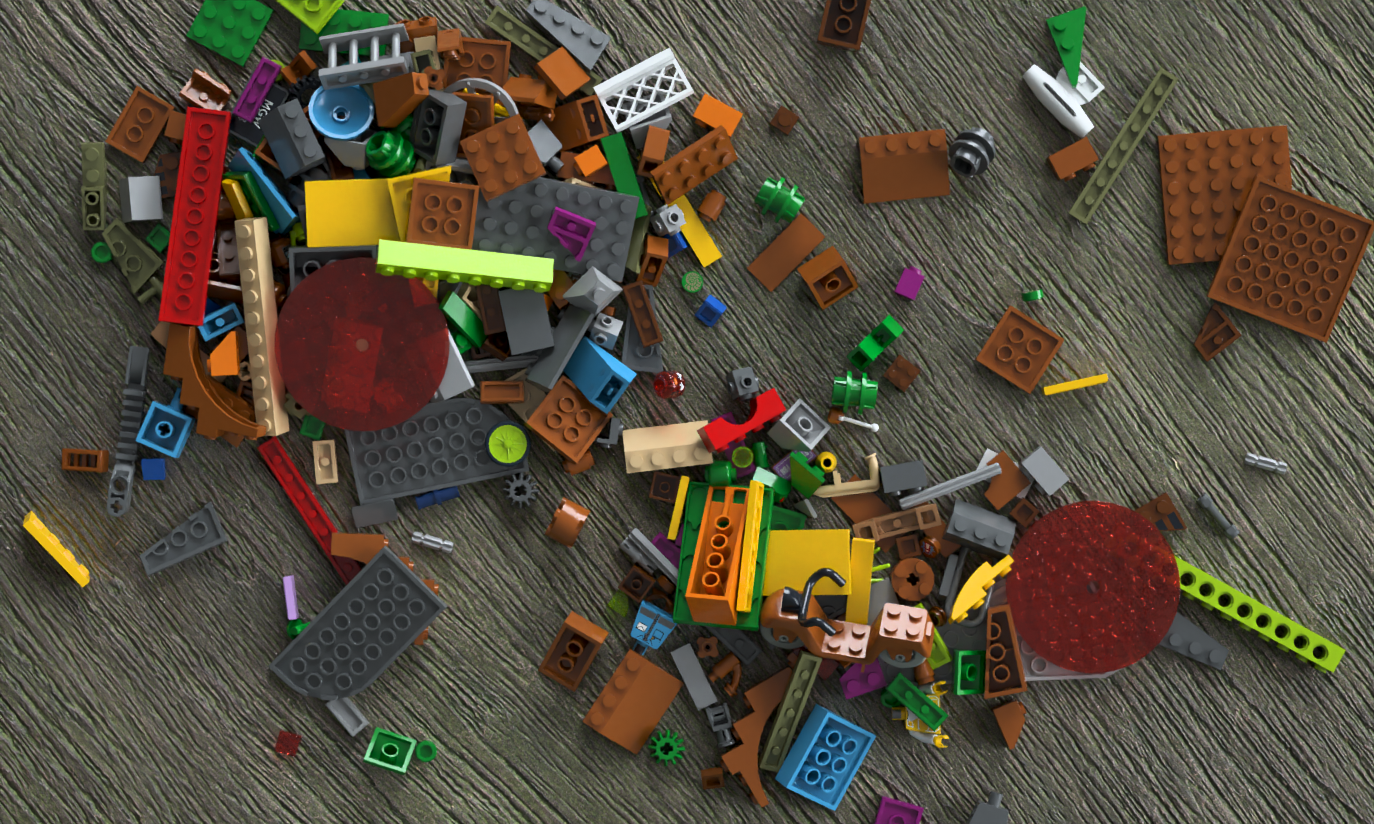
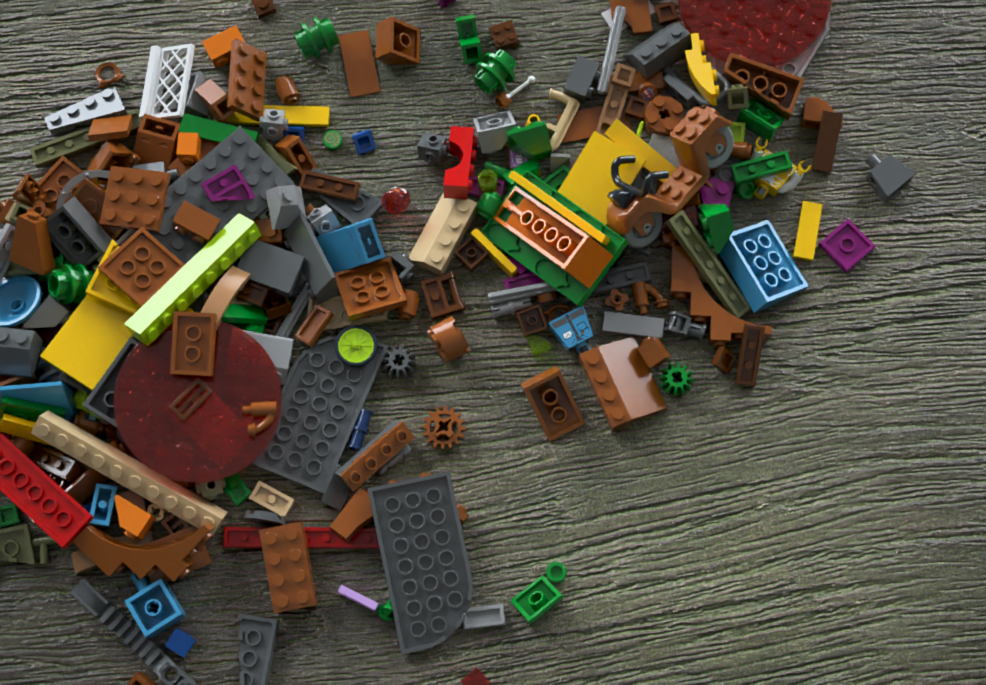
camera: 45 degrees left, 15 degrees down
(275, 520) = (288, 567): none -> dark orange brick
(303, 470) = (264, 518): none -> dark grey tile
(374, 343) = (203, 387): none -> reddish brown tile
(388, 406) = (260, 409): none -> dark orange plant
(403, 312) = (193, 343): none -> dark orange plate
(421, 527) = (374, 455): none -> dark orange piece
(461, 304) = (225, 292): none -> medium nougat slope
(491, 556) = (438, 434): none -> dark orange gear
(517, 229) = (195, 223): none -> dark orange brick
(603, 482) = (436, 296): none -> reddish brown plate
(623, 32) = (117, 77): none -> dark orange piece
(678, 712) = (653, 352): none -> dark orange brick
(731, 799) = (749, 354): none -> reddish brown tile
(829, 696) = (716, 224): none -> green slope
(888, 778) = (807, 231): none -> yellow tile
(972, 637) = (737, 97): none -> olive brick
(985, 745) = (827, 141): none -> reddish brown tile

